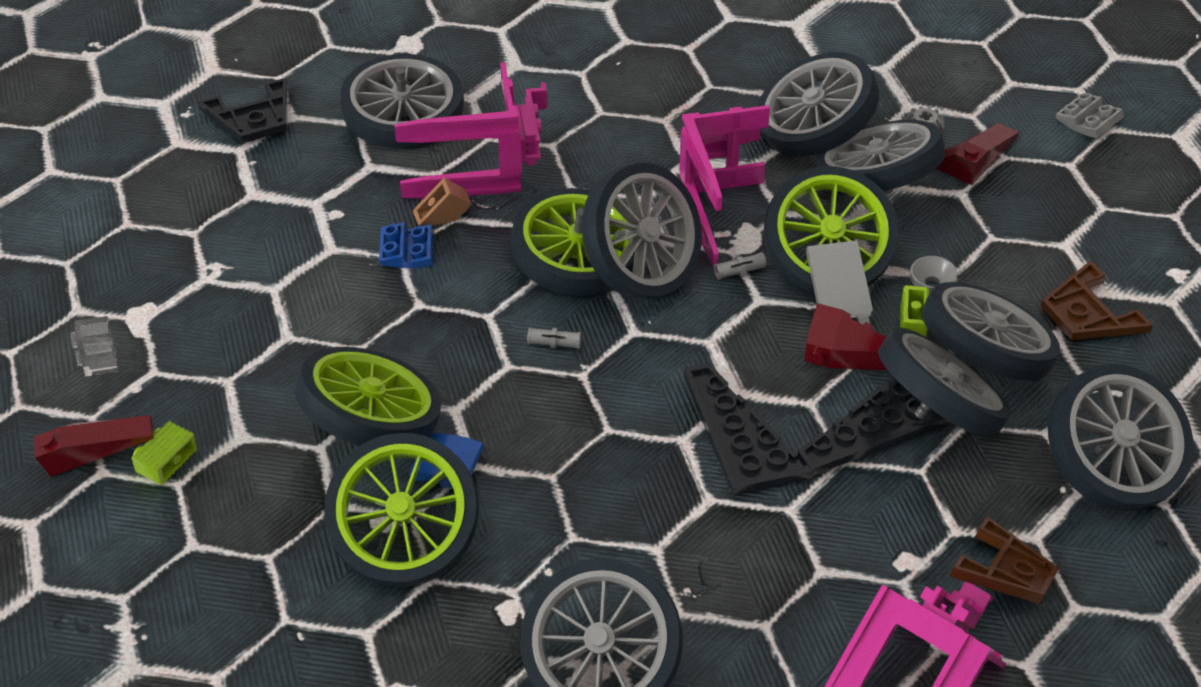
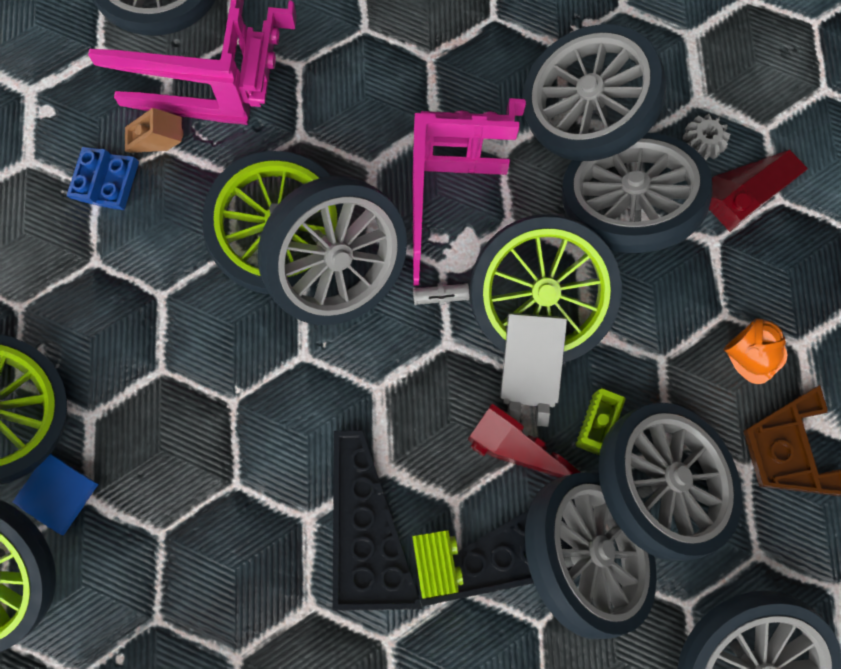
camera: 10 degrees right, 30 degrees up
(554, 338) = (215, 348): light grey pin -> none
(812, 429) = (436, 564): none -> lime brick
(932, 269) = (650, 355): light grey piece -> none
(1028, 246) = (758, 351): none -> orange helmet

